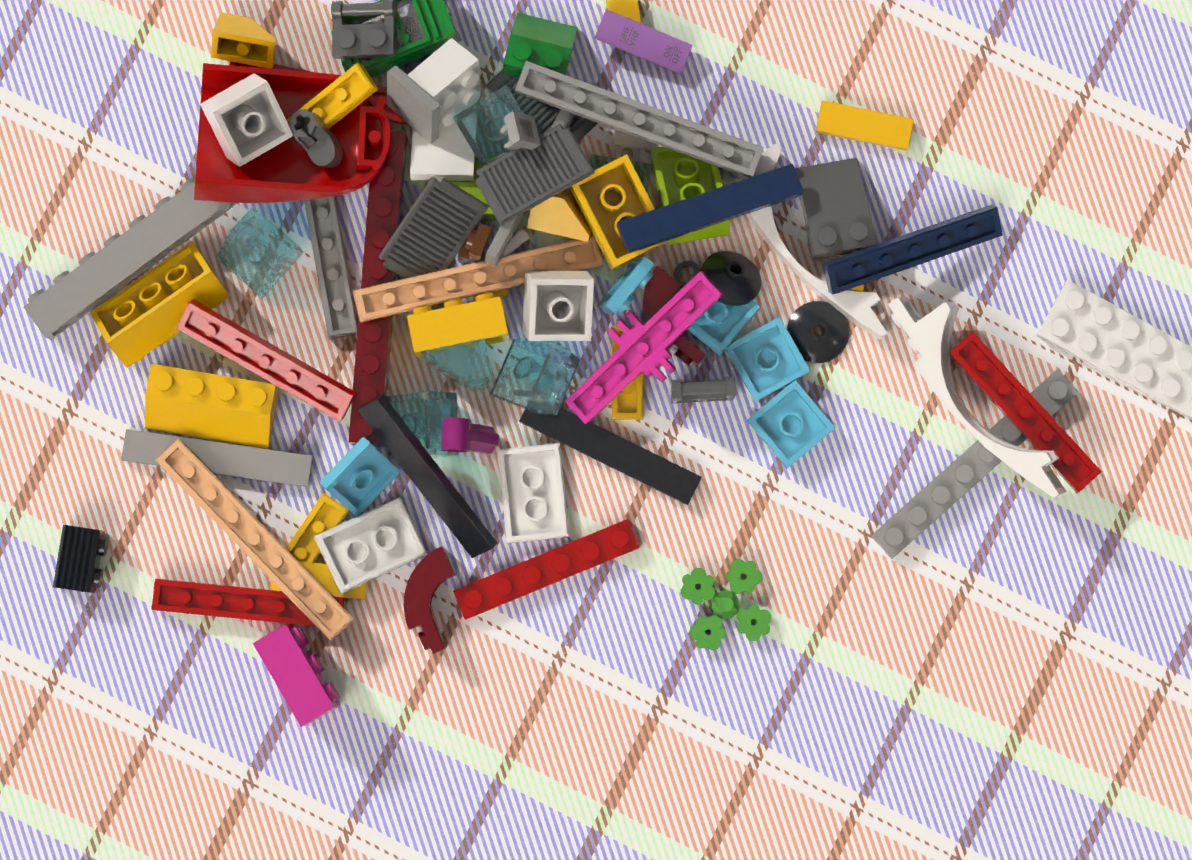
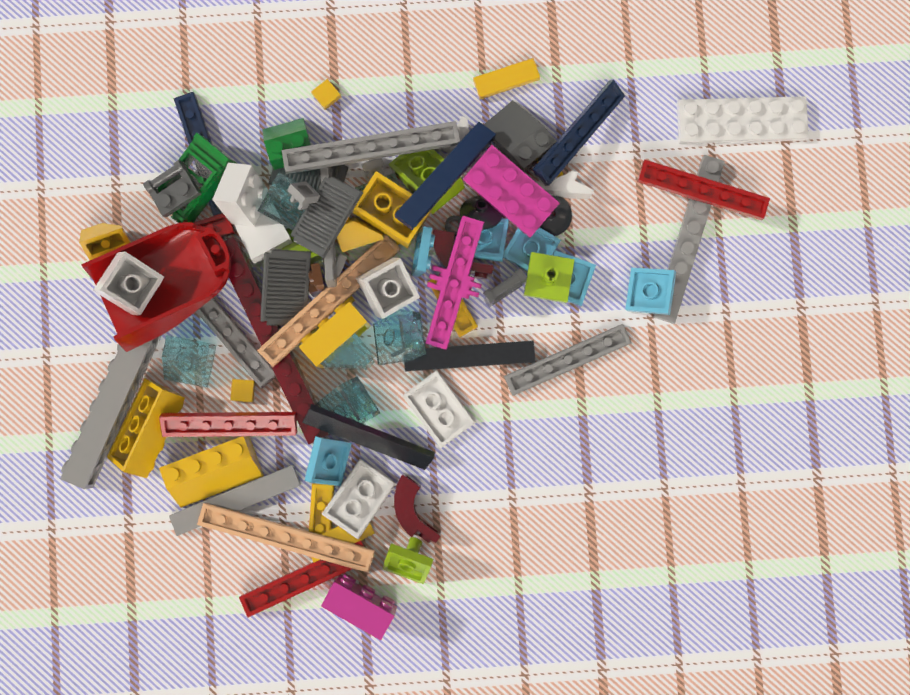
camera: 35 degrees left, 0 degrees up
(80, 559) = (185, 612): black brick -> none
(304, 327) = (242, 390): none -> yellow tile
(316, 138) = (179, 271): dark grey piece -> none
(342, 95) = (178, 244): yellow tile -> none
(386, 656) = (408, 561): none -> lime tile
(413, 104) = (227, 215): light grey tile -> none
(464, 436) = (378, 399): magenta piece -> none
(546, 569) = (473, 450): red plate -> none
(643, 41) = (347, 103): medium lavender tile -> none
(725, 604) = (592, 408): bright green plant -> none
(730, 526) = (567, 359): none -> light grey tile
(766, 409) = (549, 277): none -> lime tile
(779, 275) = (510, 191): none -> dark pink brick
(884, 500) = (650, 291): none -> medium azure plate
(931, 339) = (622, 179): white slope -> none

